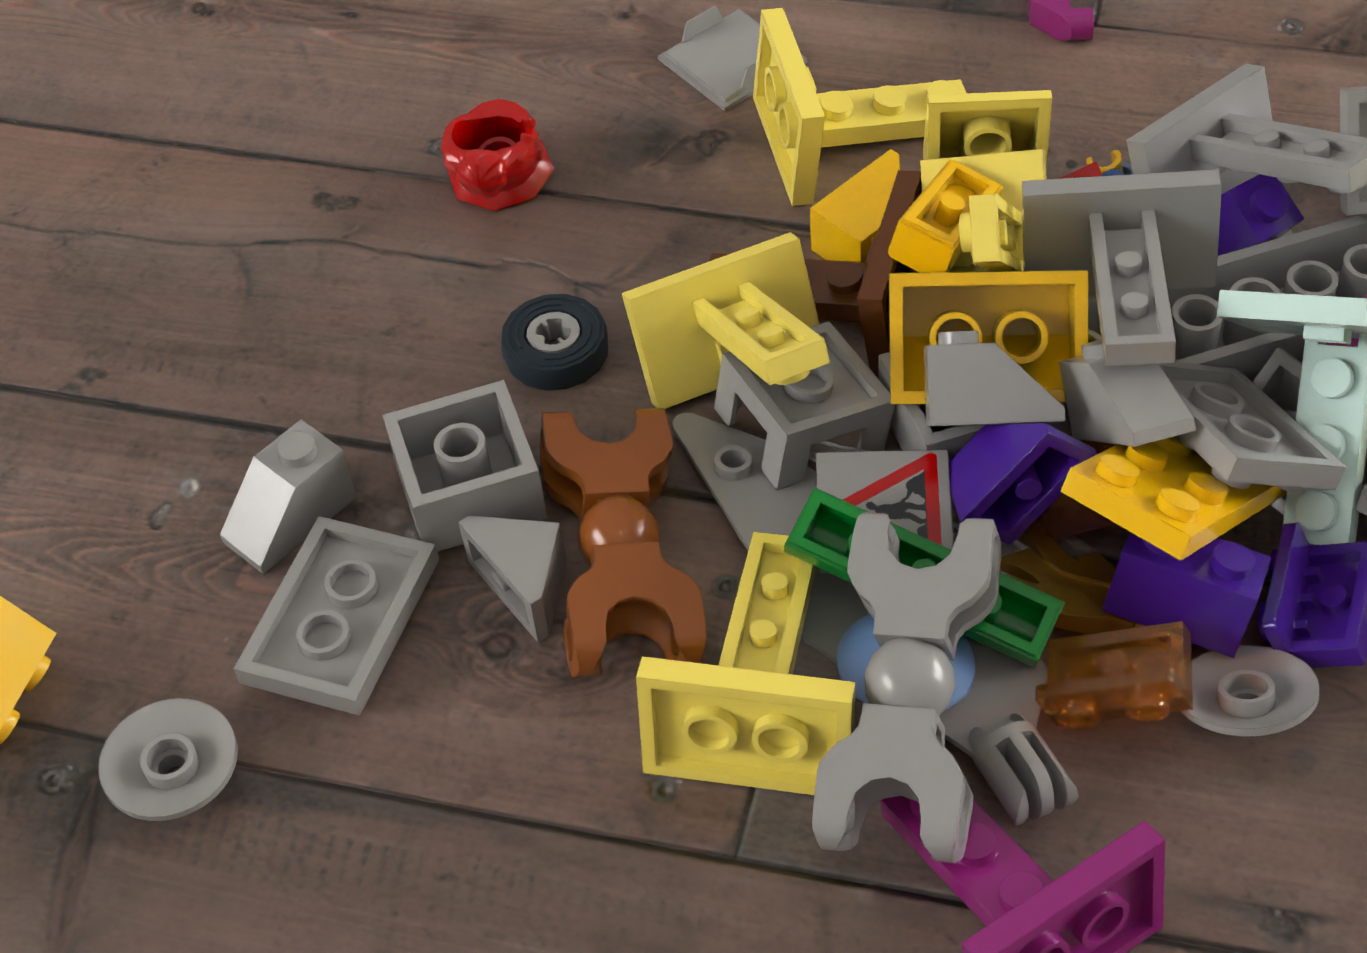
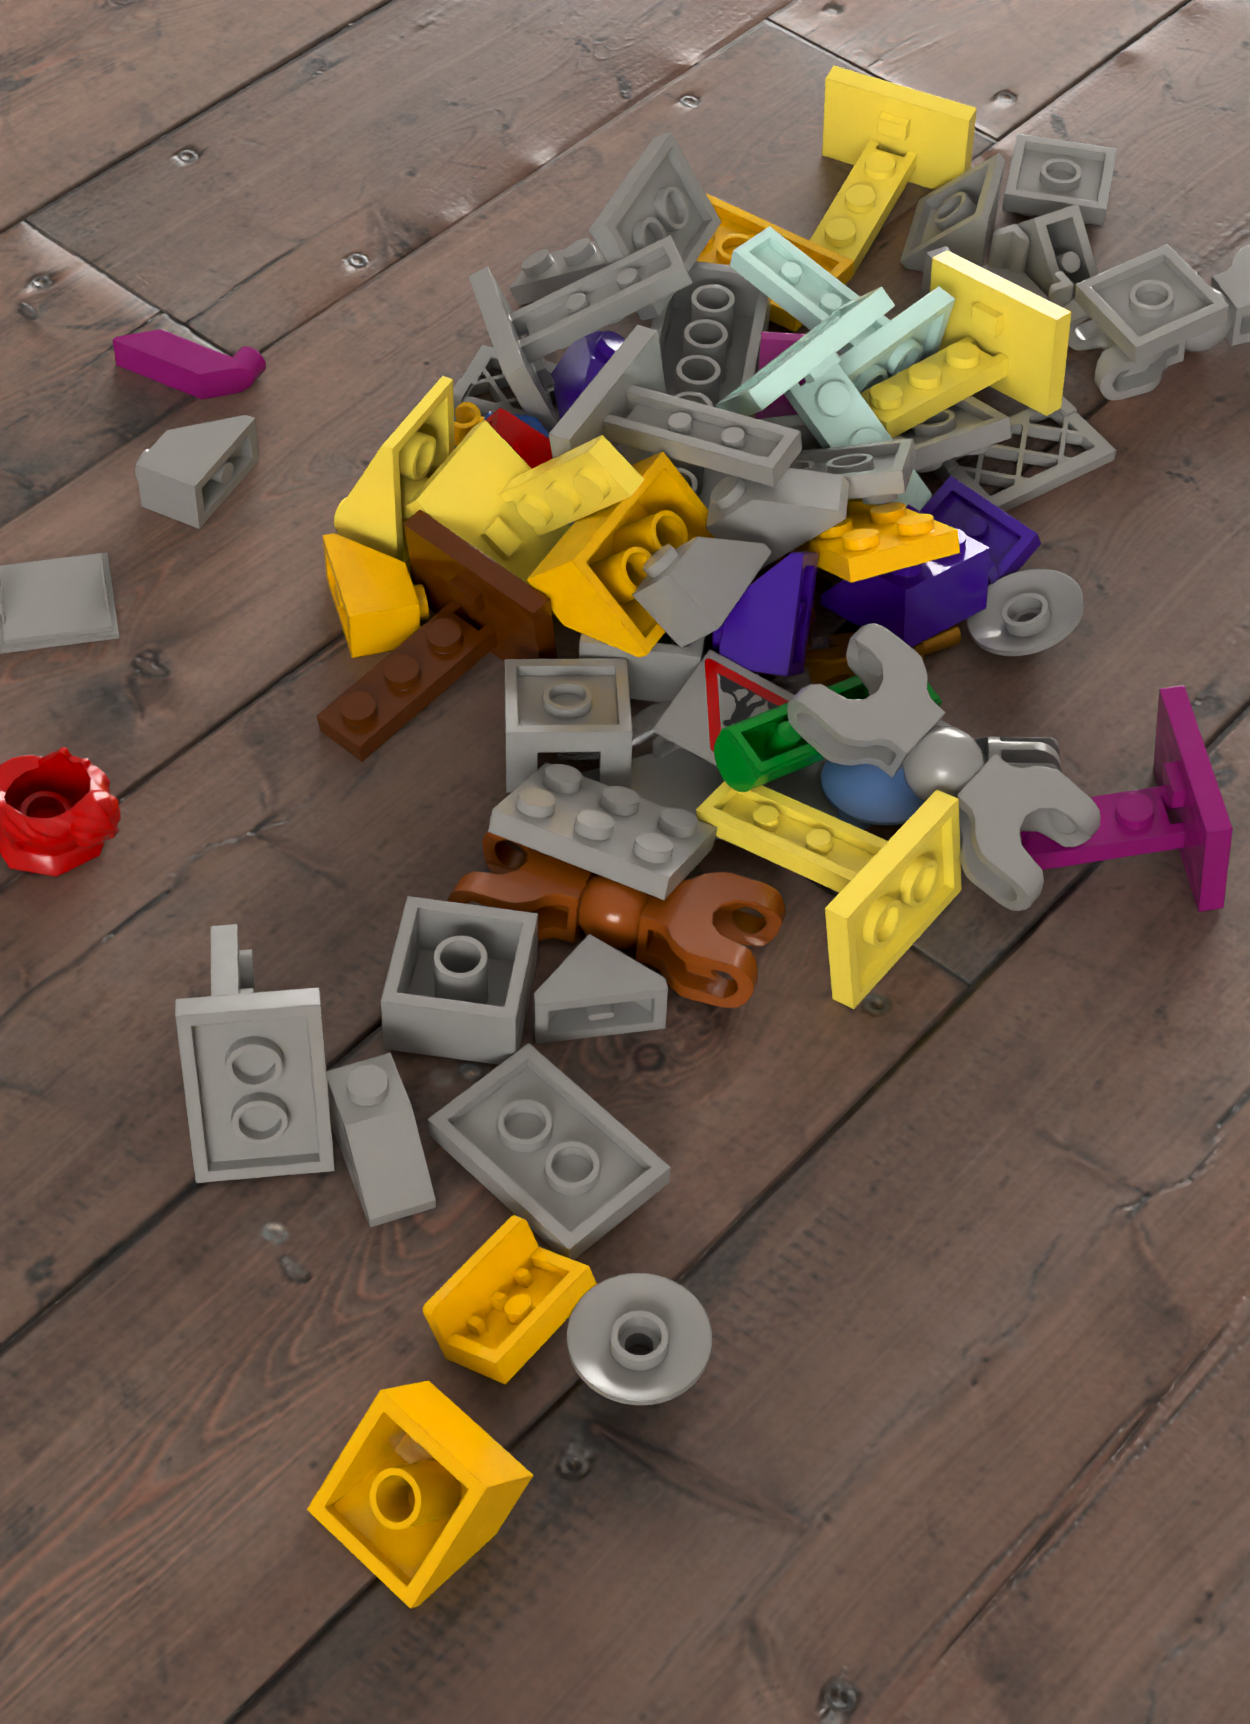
camera: 70 degrees left, 0 degrees up
(164, 650) = (505, 1302): none -> yellow bracket
(261, 358) = (253, 1073): none -> light grey piece
(550, 364) = (328, 896): black bush -> none
(678, 479) = (603, 829): none -> light grey plate
(740, 303) = (447, 708): light yellow piece -> none
(804, 122) = (215, 573): light yellow piece -> none
(929, 230) = (501, 518): yellow slope -> none
(930, 47) = (196, 468): none -> light grey slope
(1118, 676) = (976, 665): clear orange bracket -> none

